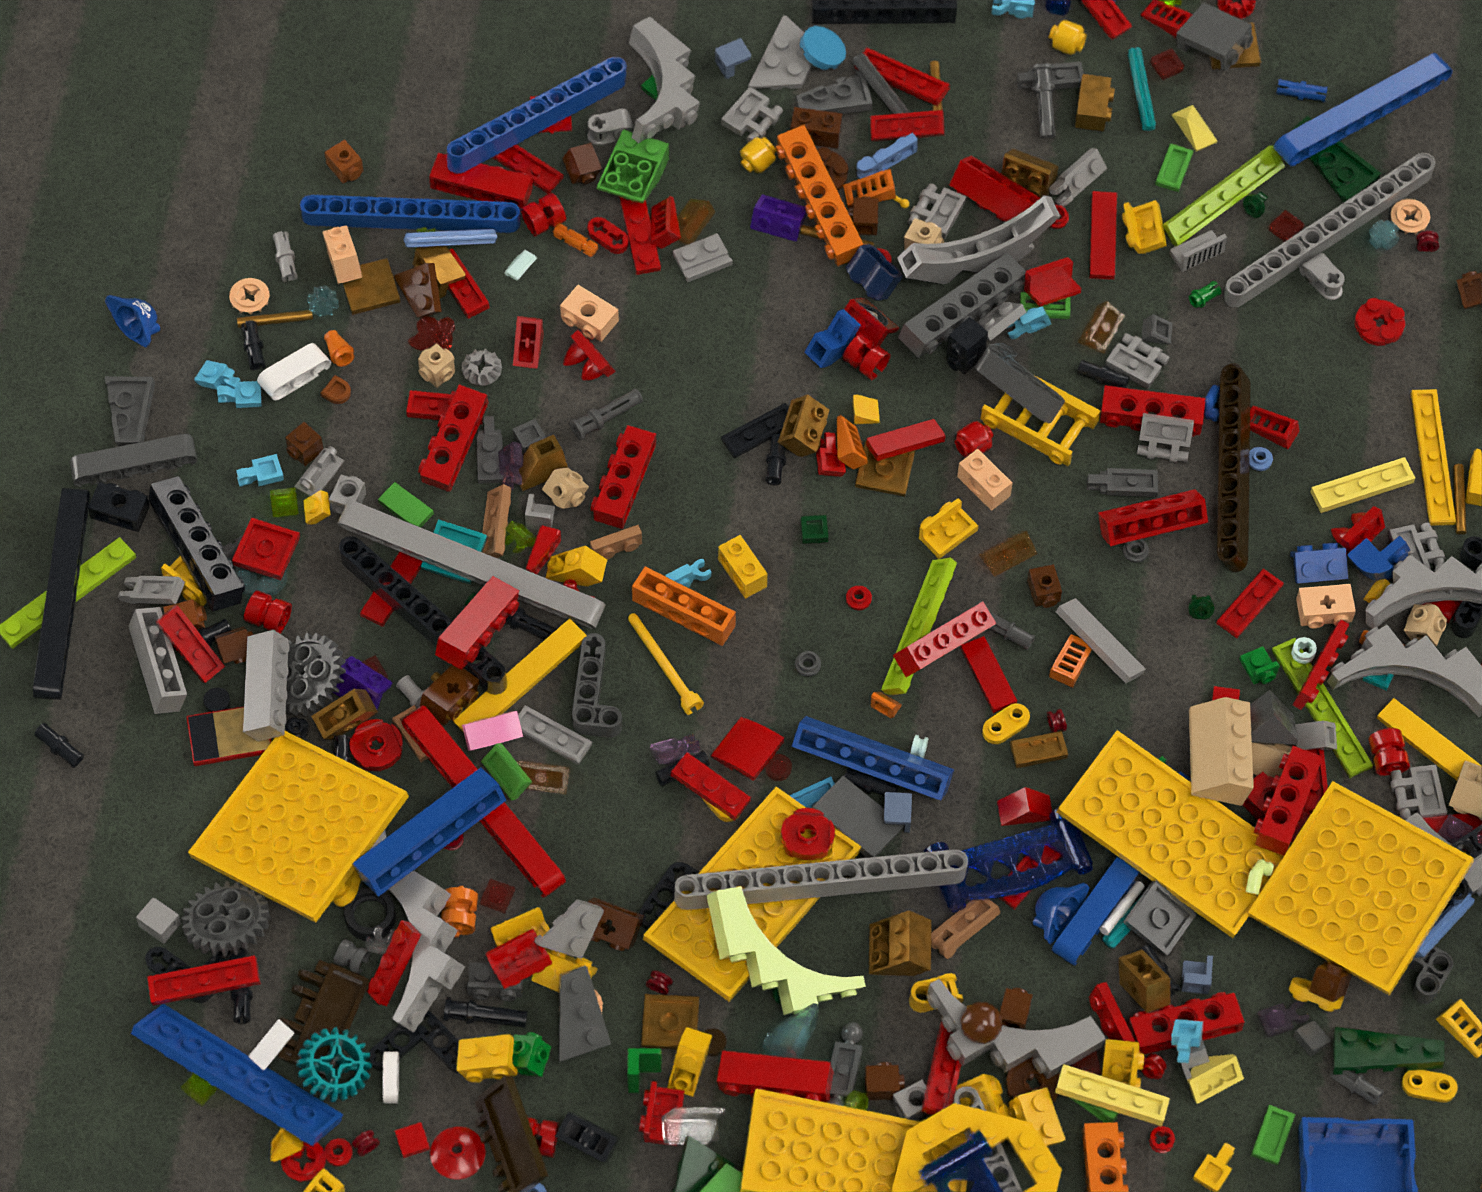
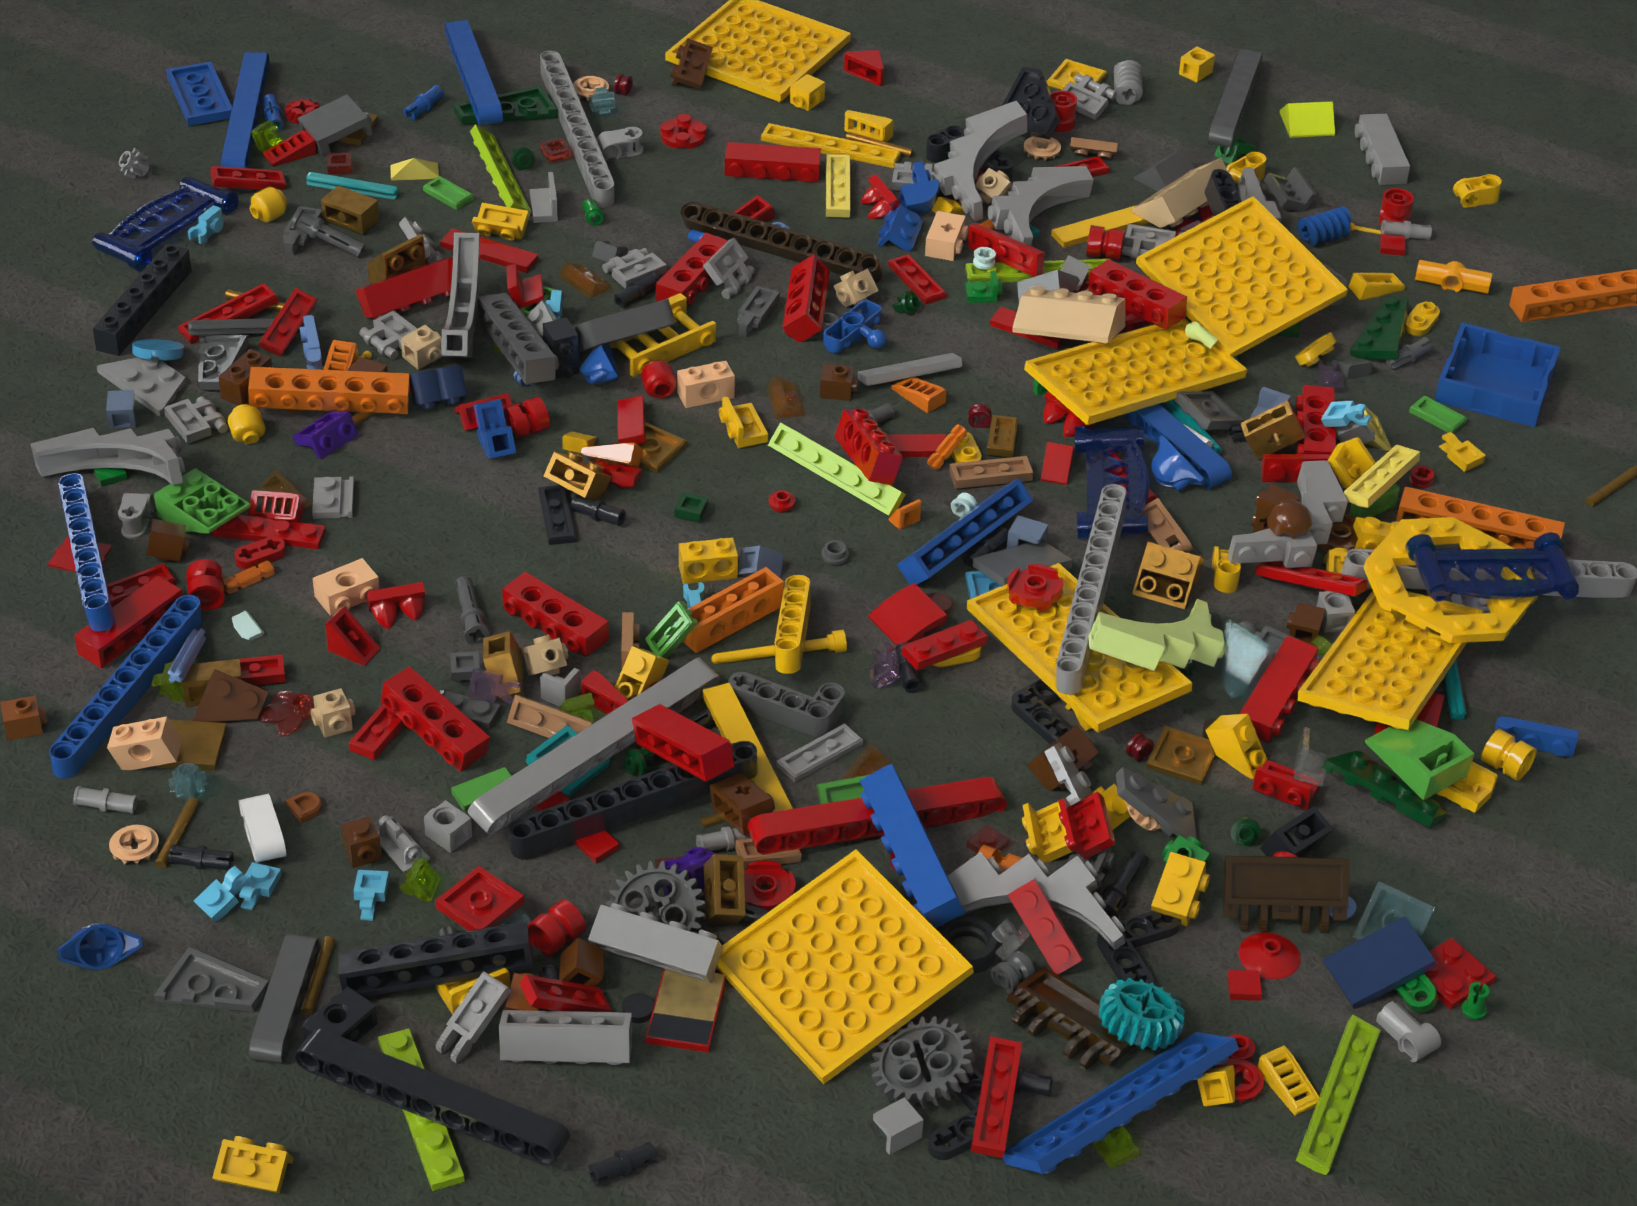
camera: 70 degrees left, 20 degrees down
(168, 473) = (318, 975): none -> pearl gold bar
(271, 1044) = (1095, 1062): white sticker -> none
(316, 507) = (446, 856): yellow plate -> none
(339, 350) = (253, 786): orange cone -> none
(365, 1142) = (1237, 1019): dark red bush -> none
(390, 1077) = (1171, 973): white beam -> none
(488, 374) = (360, 693): light grey gear -> none
(492, 730) = (800, 786): bright pink slope -> none
(588, 1096) = (1245, 832): none -> dark green plate
(629, 573) = (672, 635): none -> bright green tile
(642, 1061) = (1238, 778): green panel -> none
(675, 666) = (792, 624): none -> yellow beam
(762, 609) = (758, 557): none -> sand blue panel
(969, 390) = (600, 366): none -> blue hat
(980, 755) = (990, 472): none -> medium nougat plate
(991, 706) = (947, 447): none -> orange axle
(1122, 571) = (854, 326): none -> blue piece
(1192, 553) = (855, 287): none -> tan brick
(1330, 981) = (1314, 329): reddish brown brick -> none
(1365, 415) = (772, 162): none -> red brick

